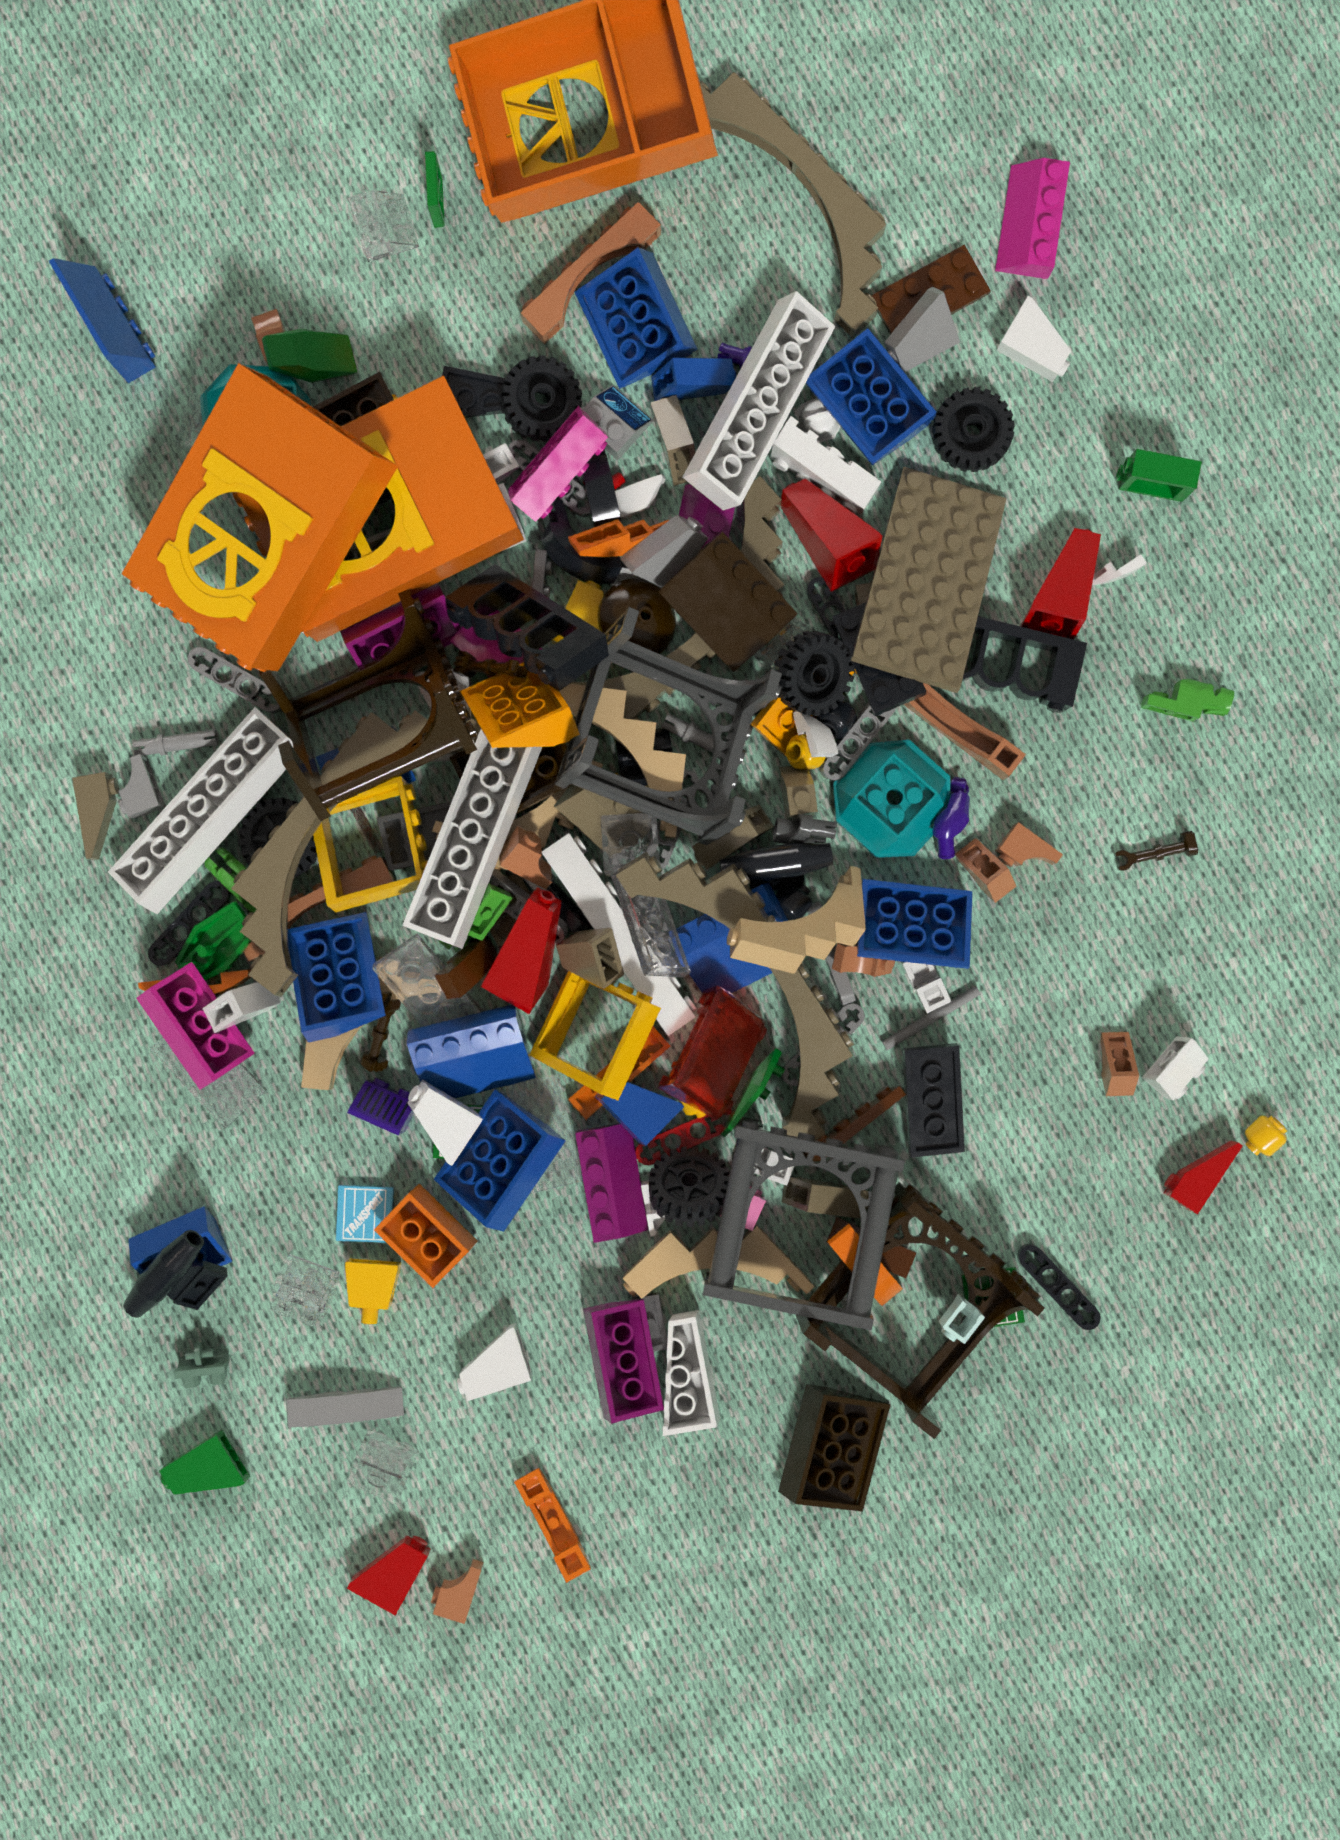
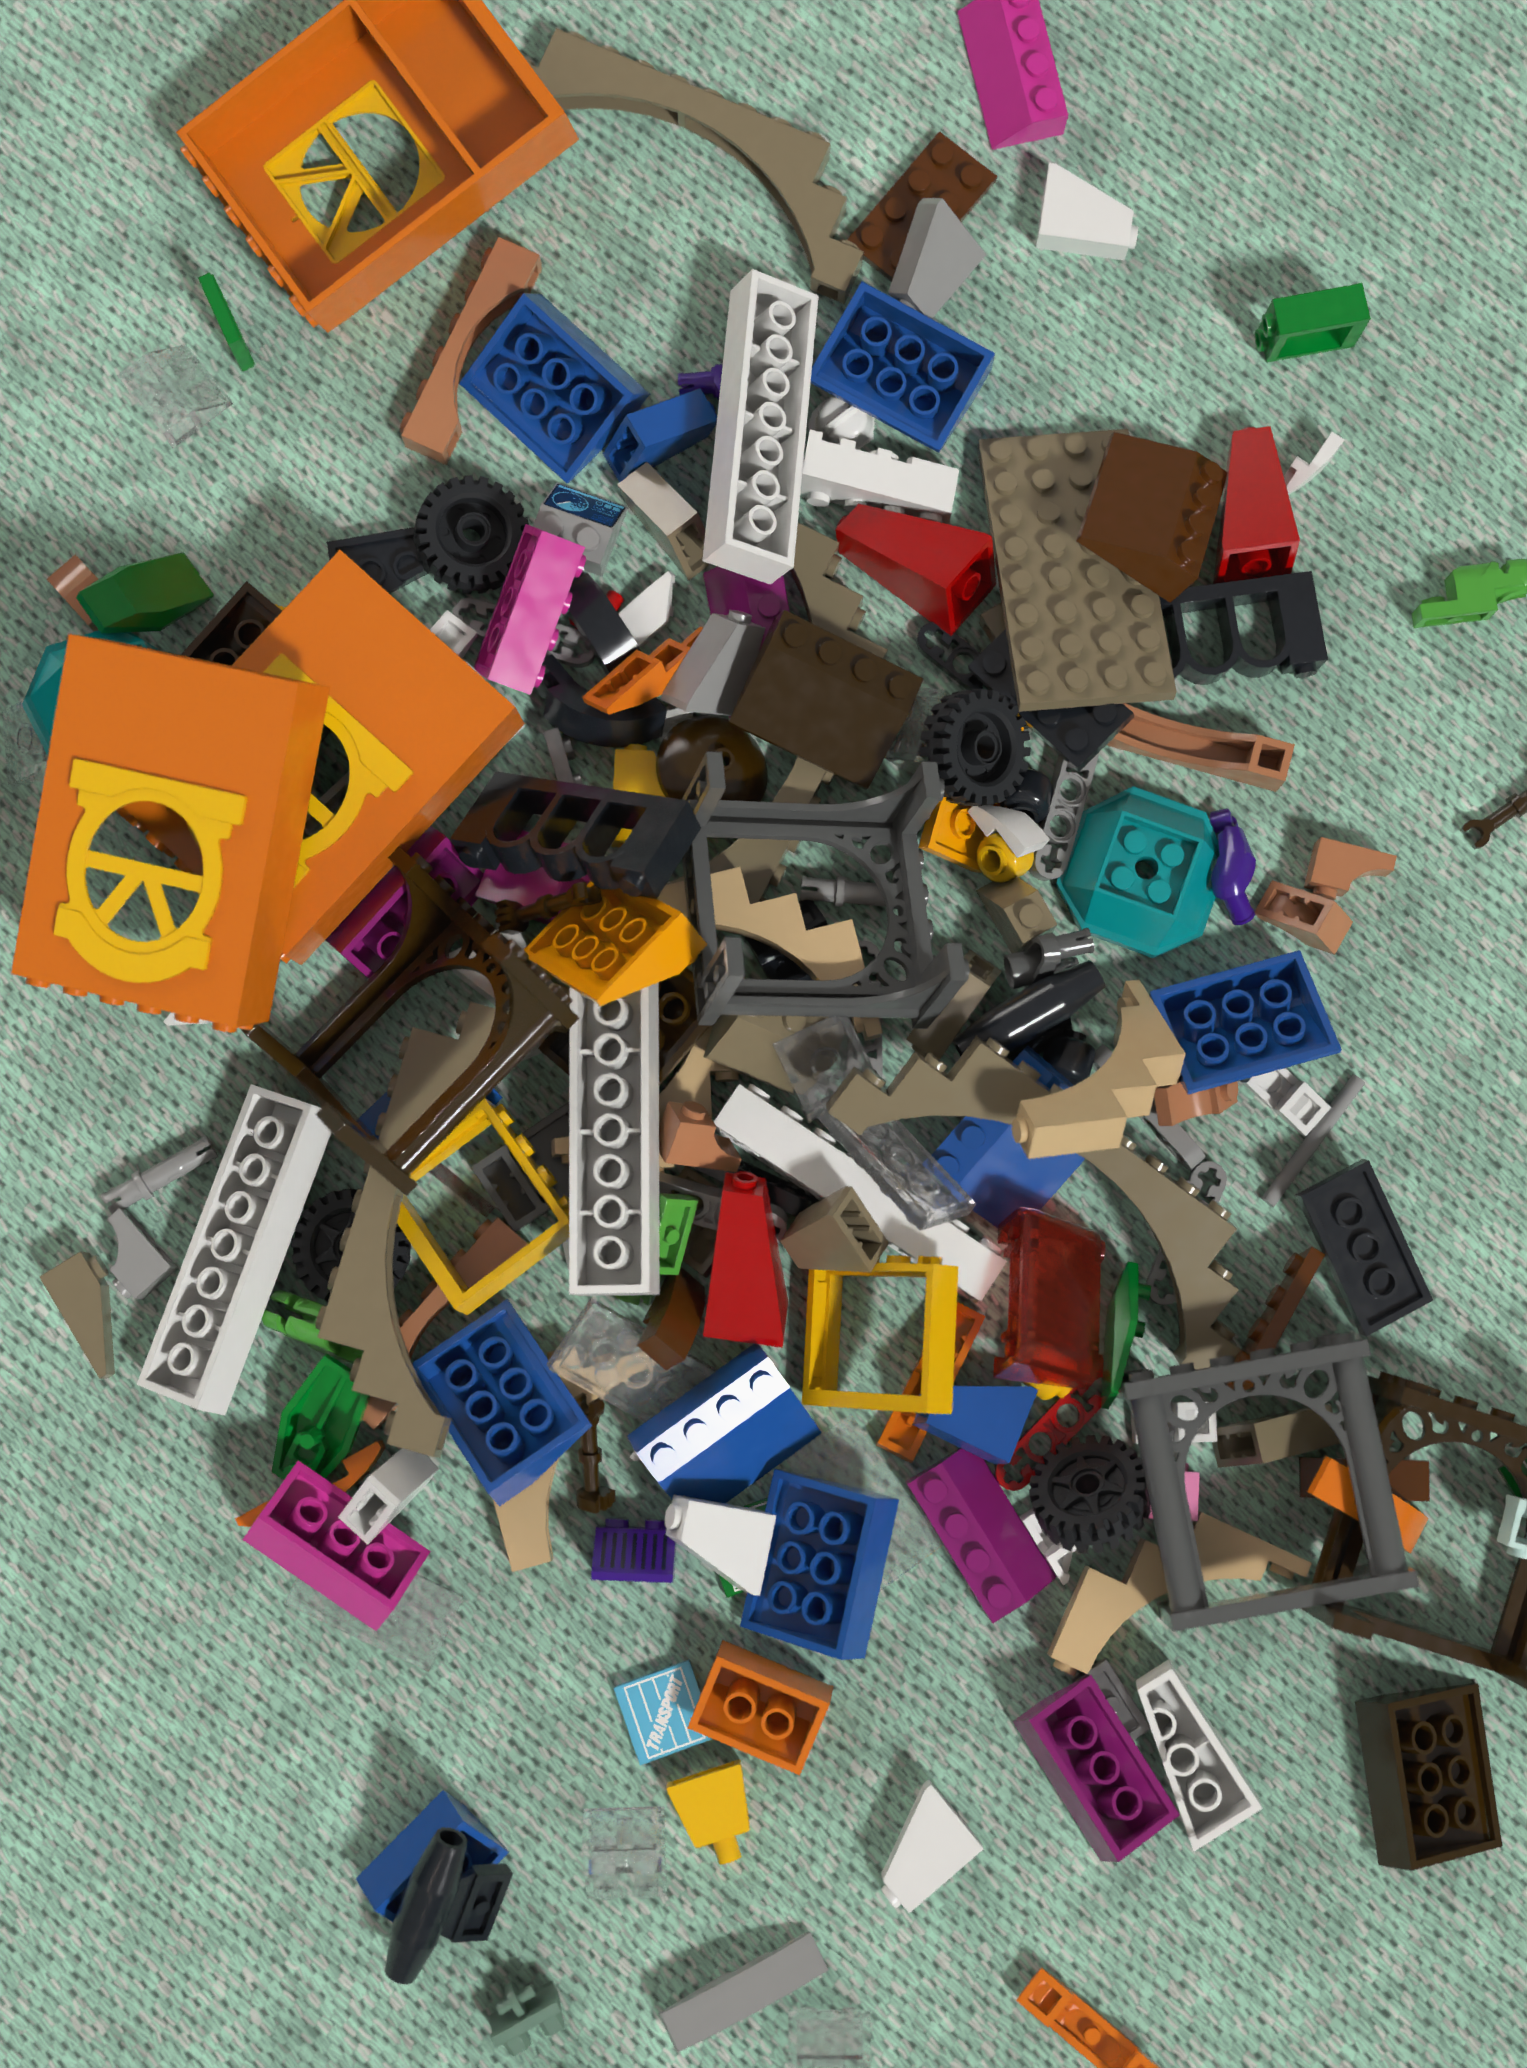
camera: 20 degrees left, 5 degrees down
(186, 919) = (266, 1408): black beam -> none
(235, 681) = (209, 1060): light grey beam -> none
(975, 409) = (1054, 332): black wheel -> none
(996, 561) = (1153, 512): none -> reddish brown slope

